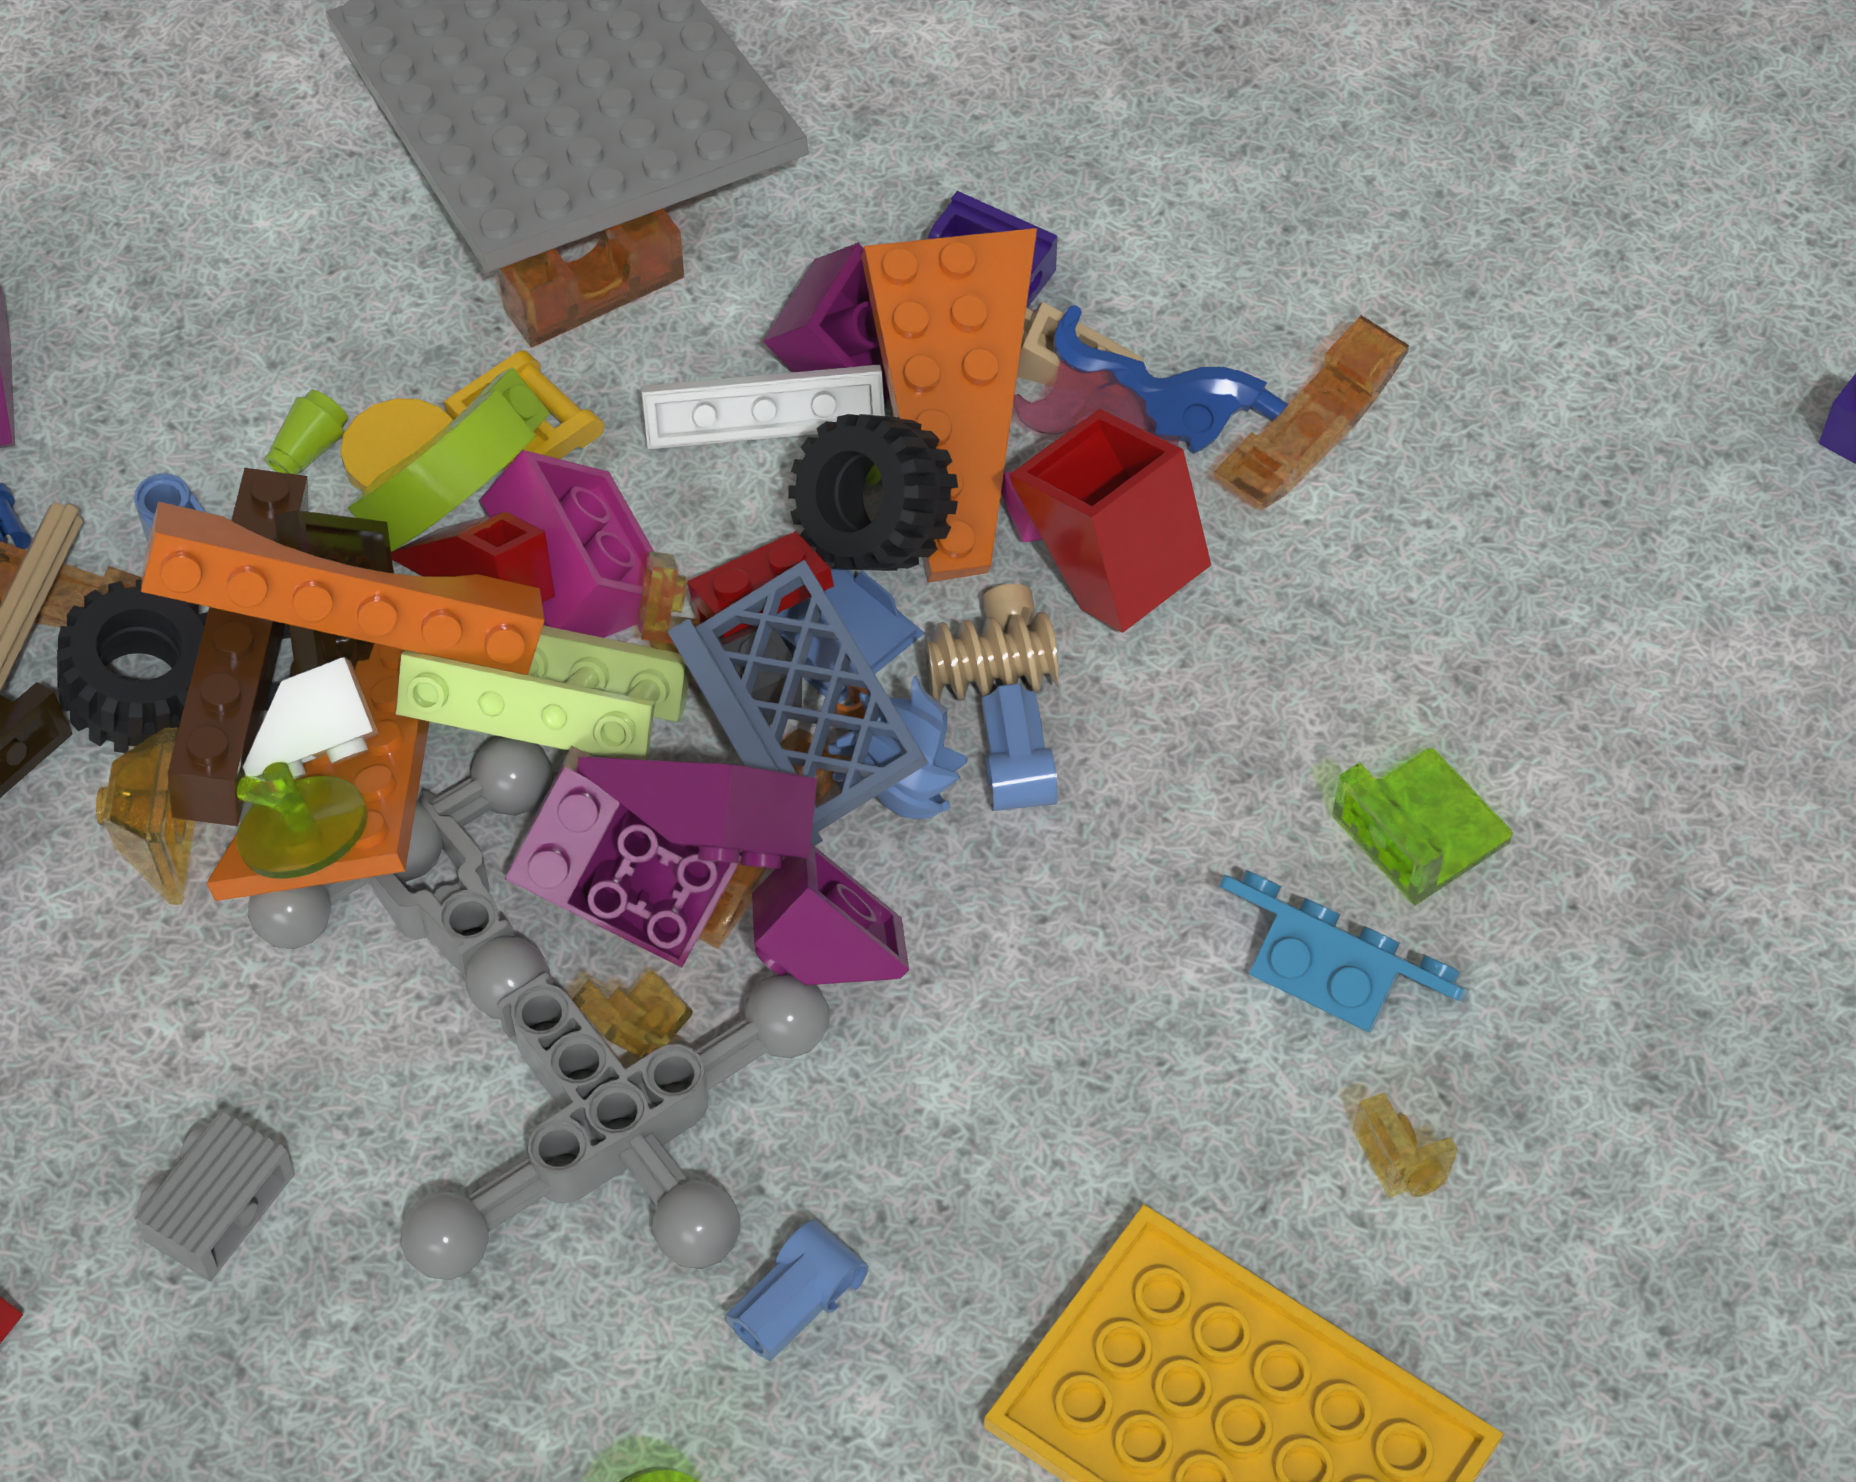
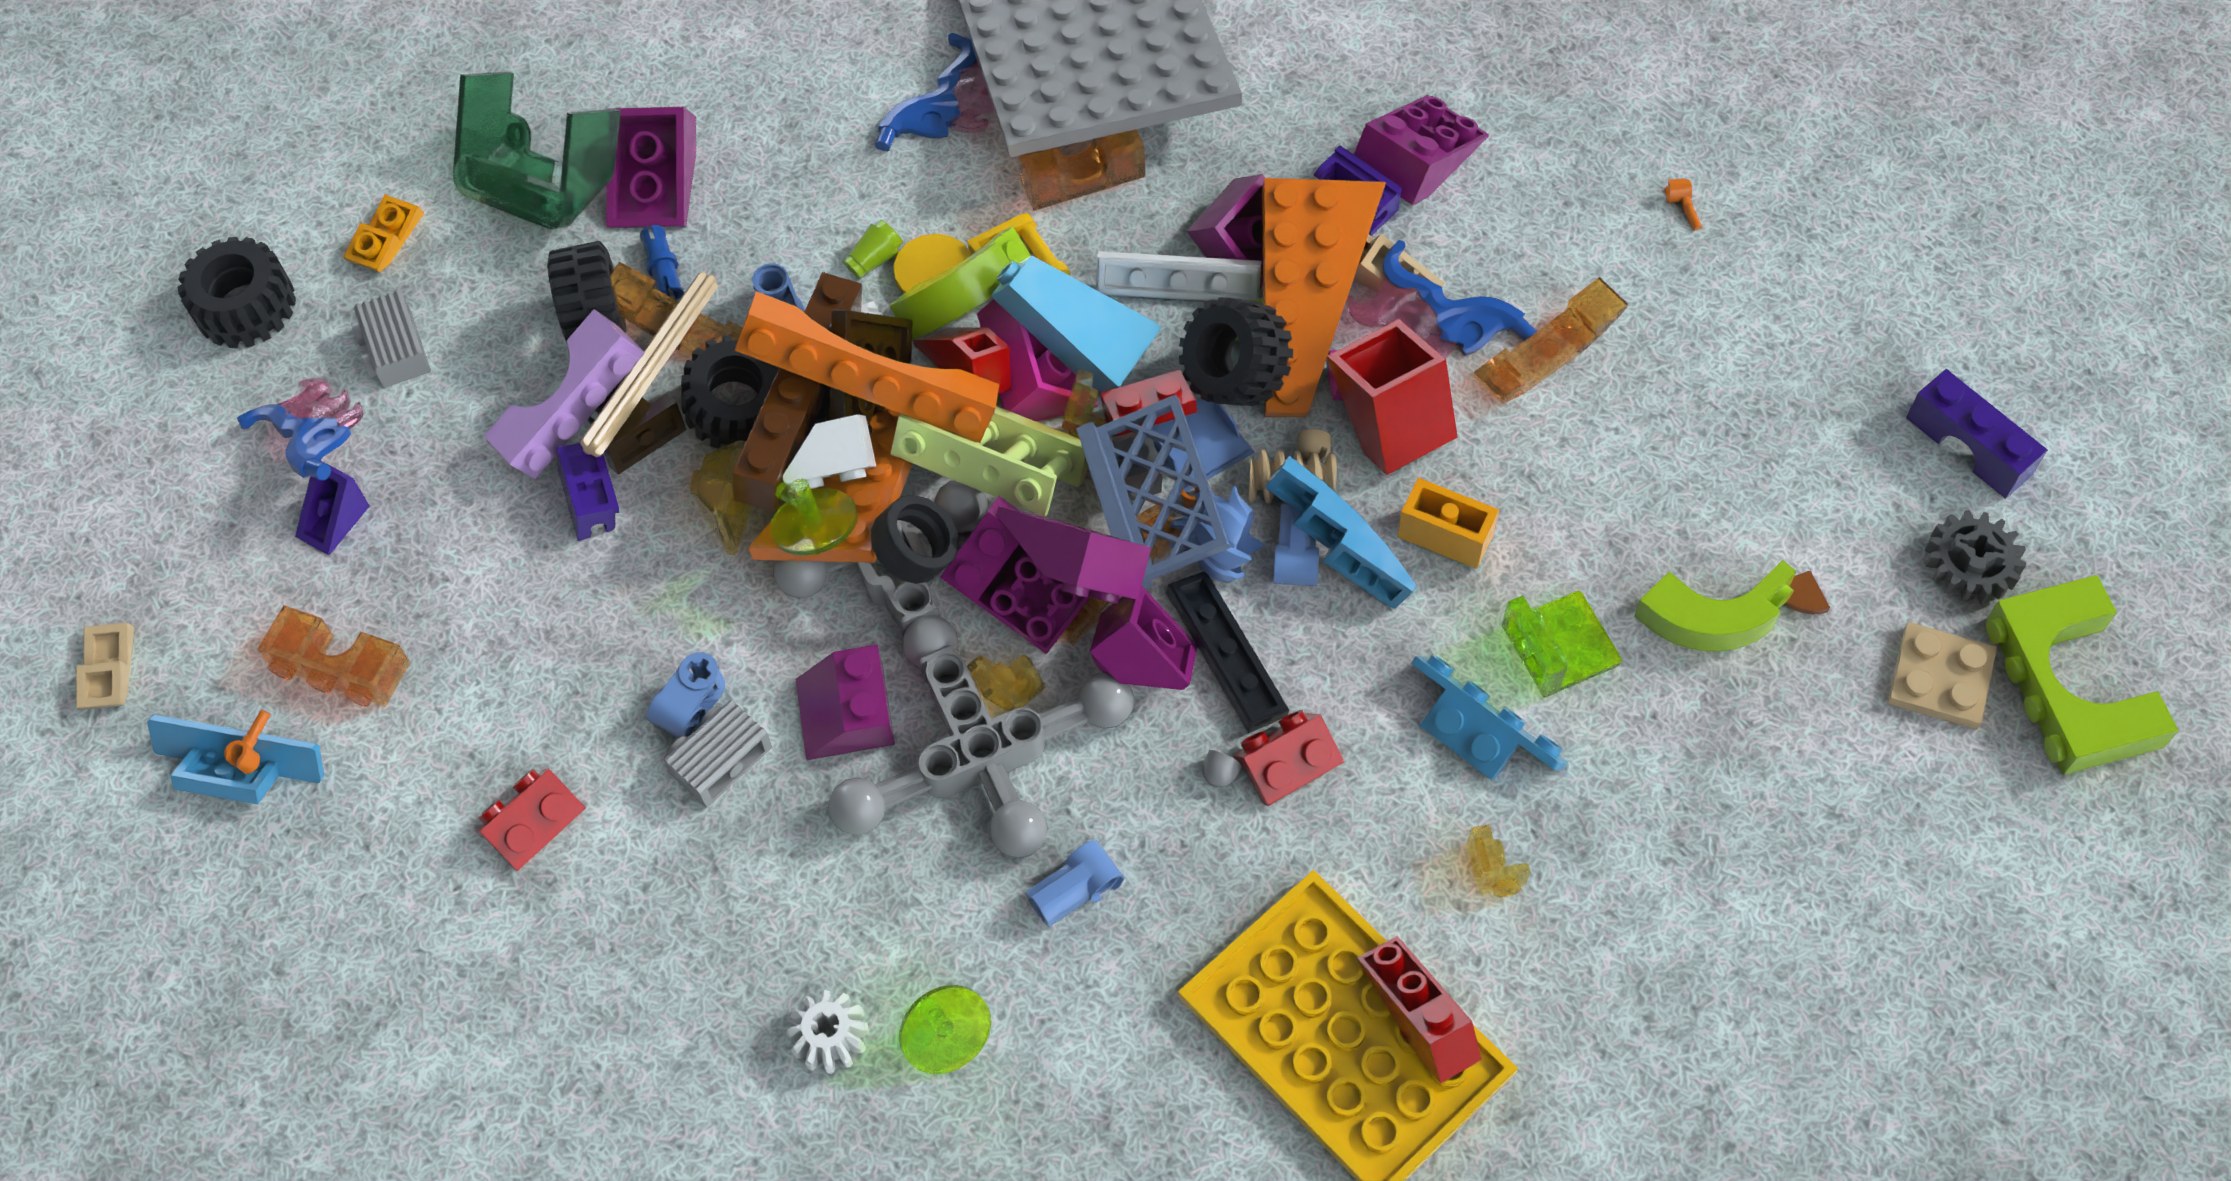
camera: 15 degrees right, 5 degrees up
(148, 1127) = (682, 700): none -> medium blue piece
(386, 215) = (954, 104): none -> blue piece
(395, 1089) = (845, 704): none -> magenta slope
(441, 854) = (897, 556): none -> black tyre
(630, 483) = (1075, 321): none -> medium azure slope
(948, 918) = (1227, 651): none -> black tile
(975, 1085) = (1220, 769): none -> light grey hinge
(1067, 178) = (1419, 145): none -> magenta slope
(1070, 1049) = (1289, 755): none -> bracket
(1098, 732) = (1352, 543): none -> dark azure slope
(1226, 683) = (1447, 523): none -> light orange brick
(1351, 1373) = (1422, 1009): none -> red slope
(1443, 188) = (1681, 191): none -> orange hand
(1625, 762) = (1714, 624): none -> lime arch
(1736, 703) = (1807, 595): none -> dark orange tile

